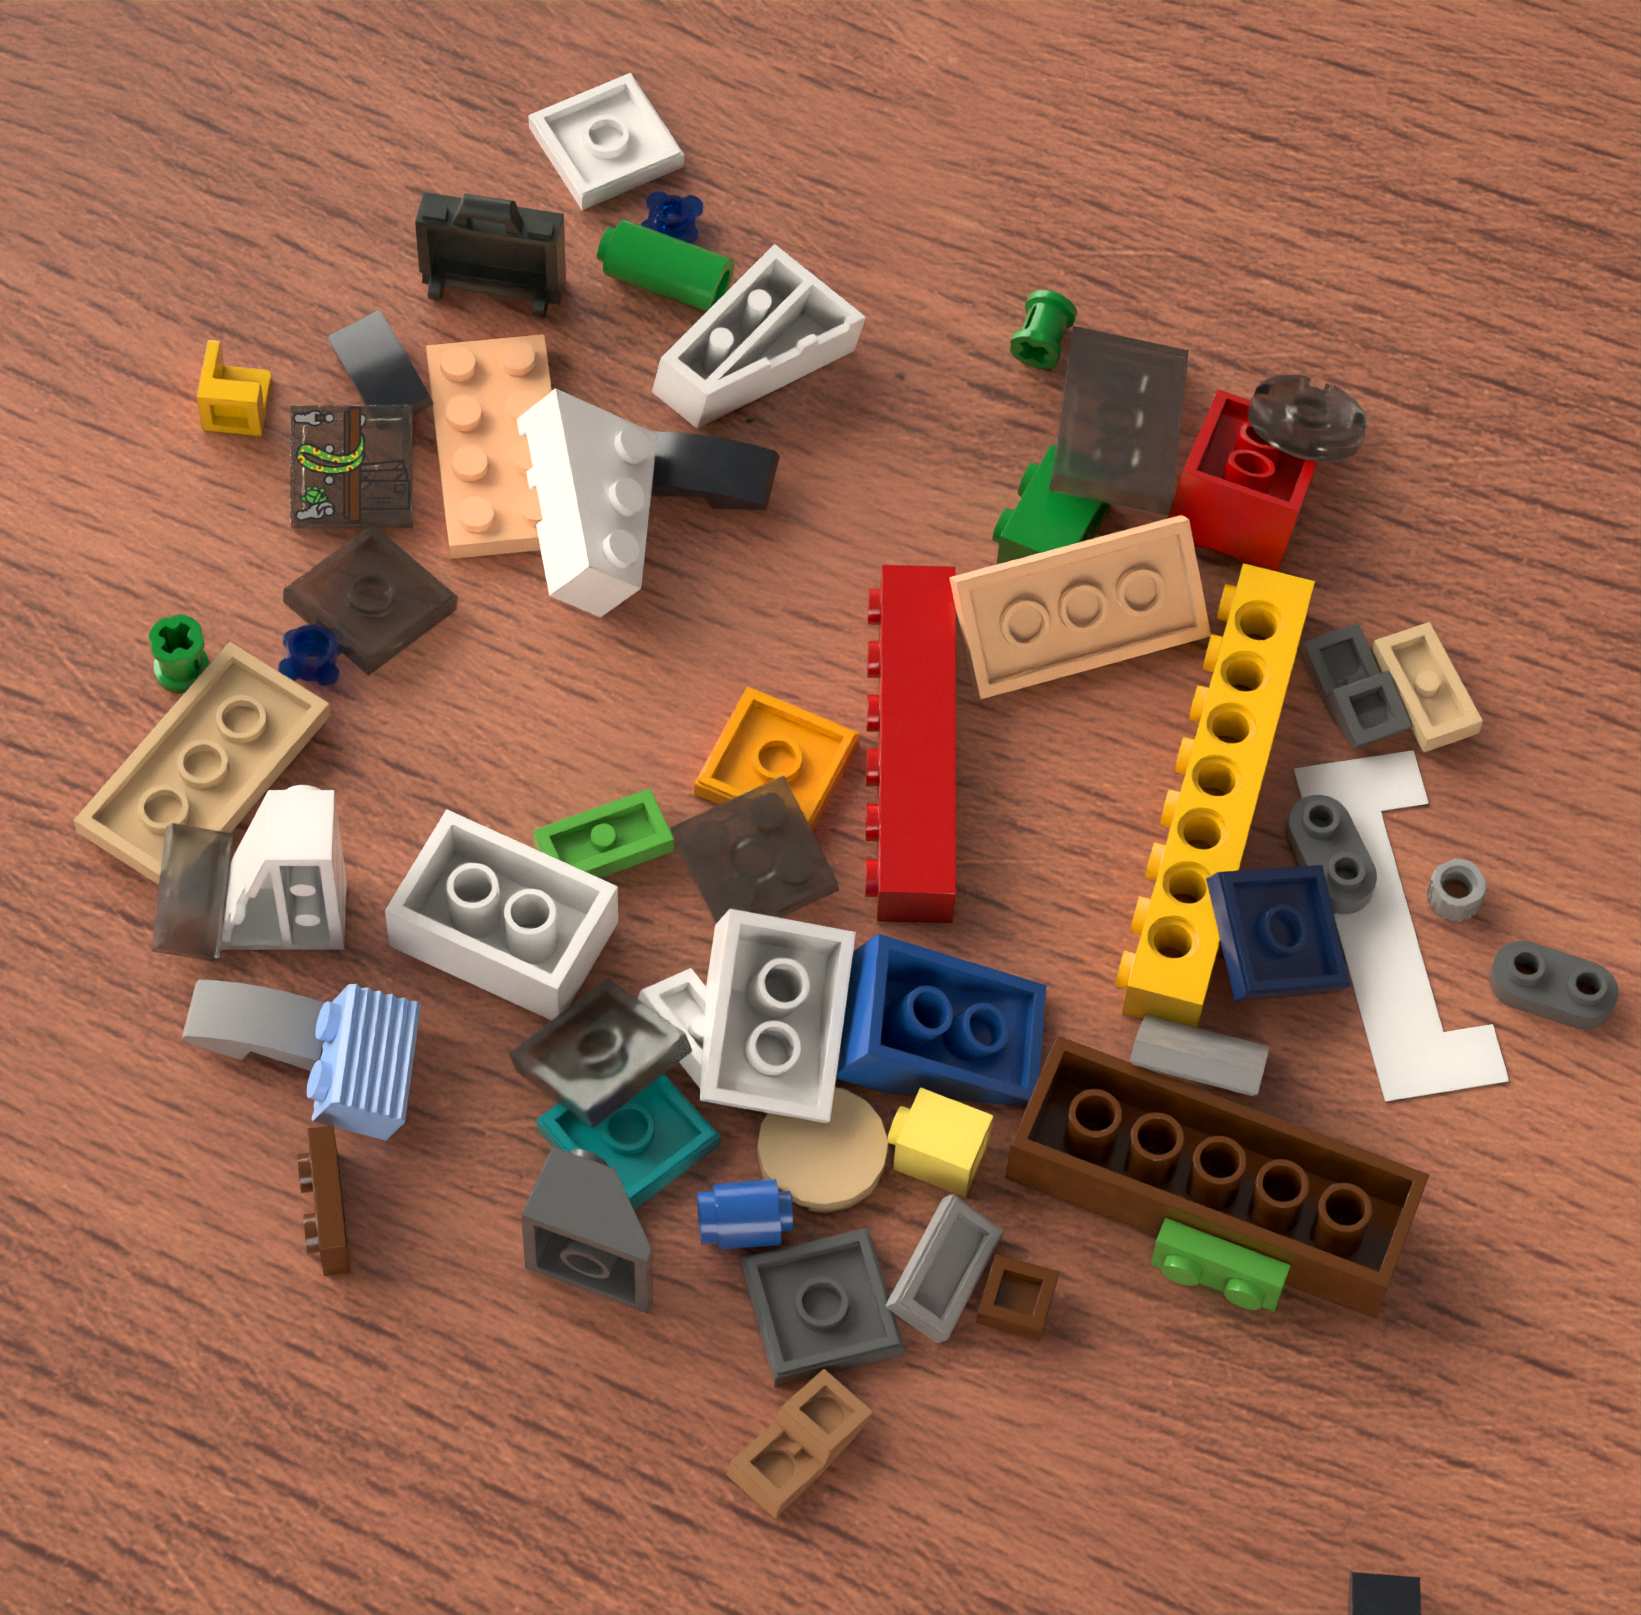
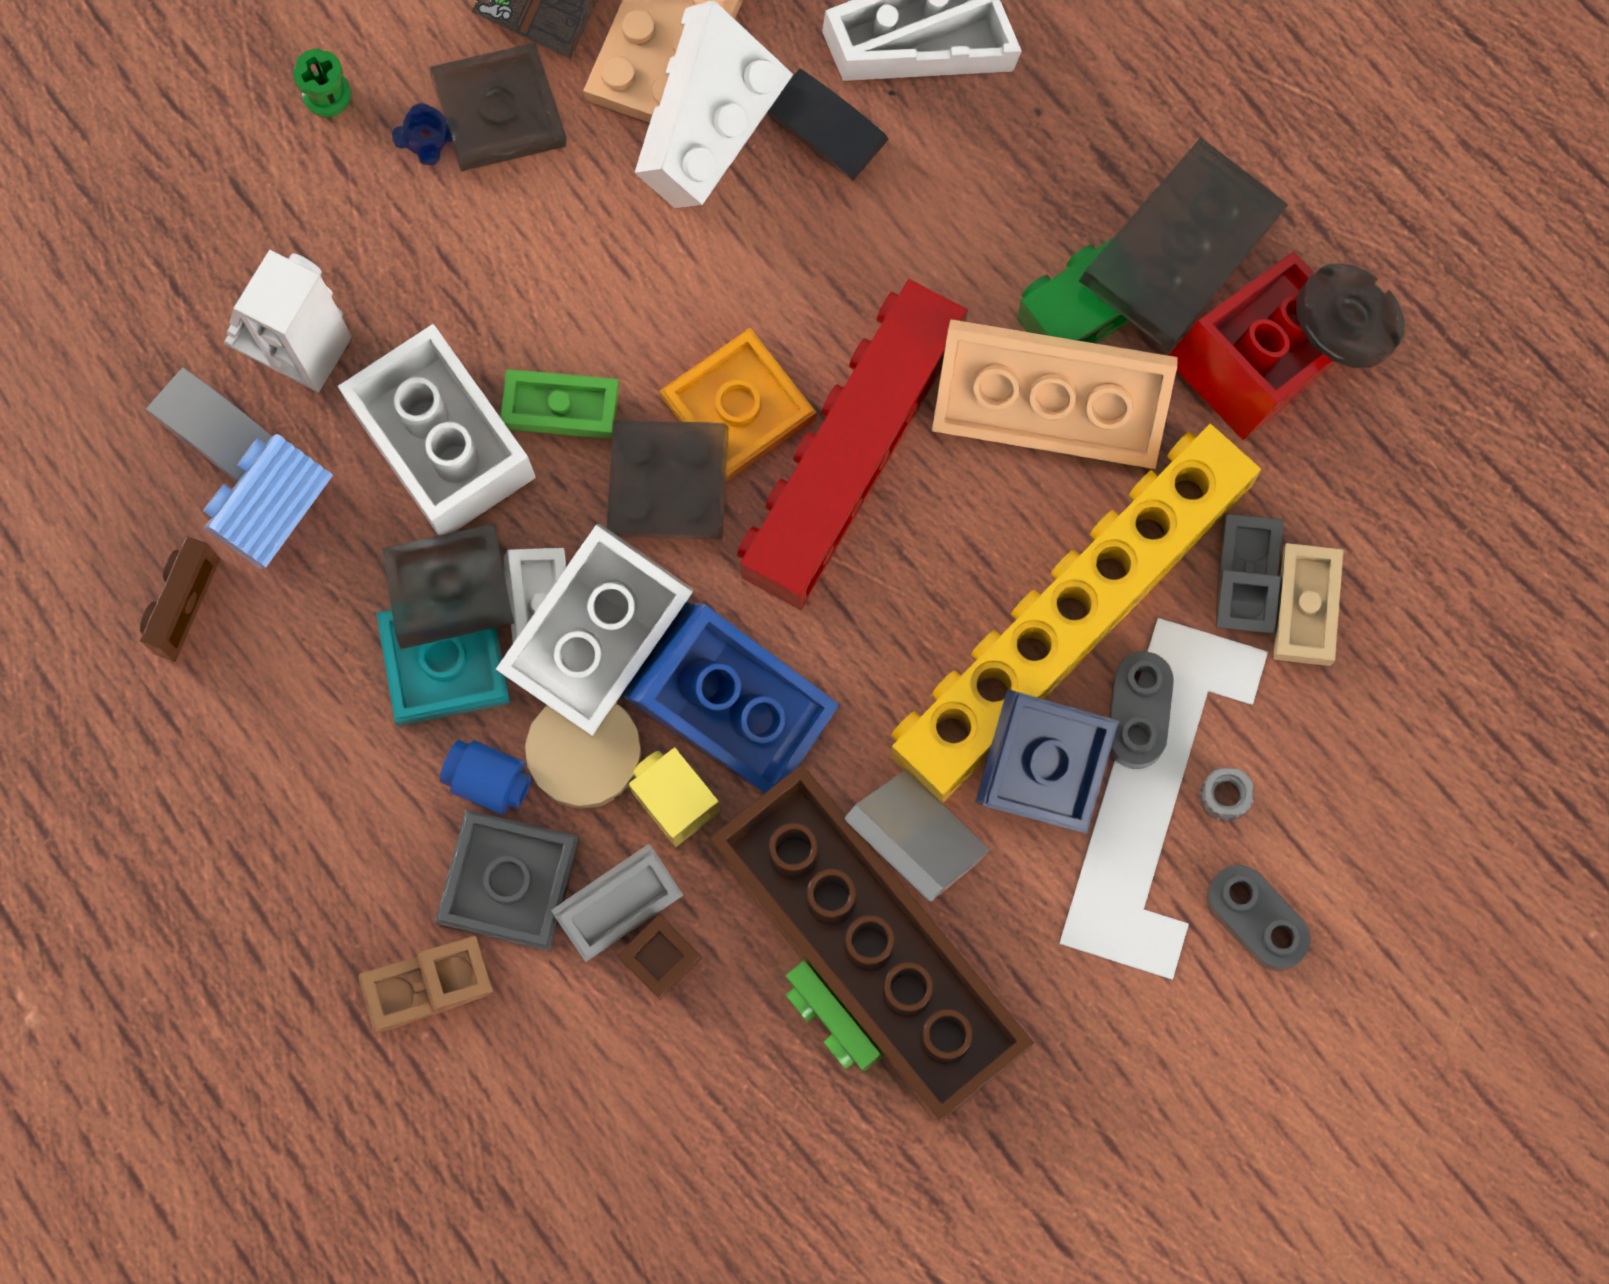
camera: 35 degrees right, 15 degrees up
(192, 892) = (214, 290): clear smoke tile -> none
(204, 759) = (289, 188): tan plate -> none
(586, 1230) = (350, 726): dark grey slope -> none
(1043, 329) = (1175, 128): green bush -> none

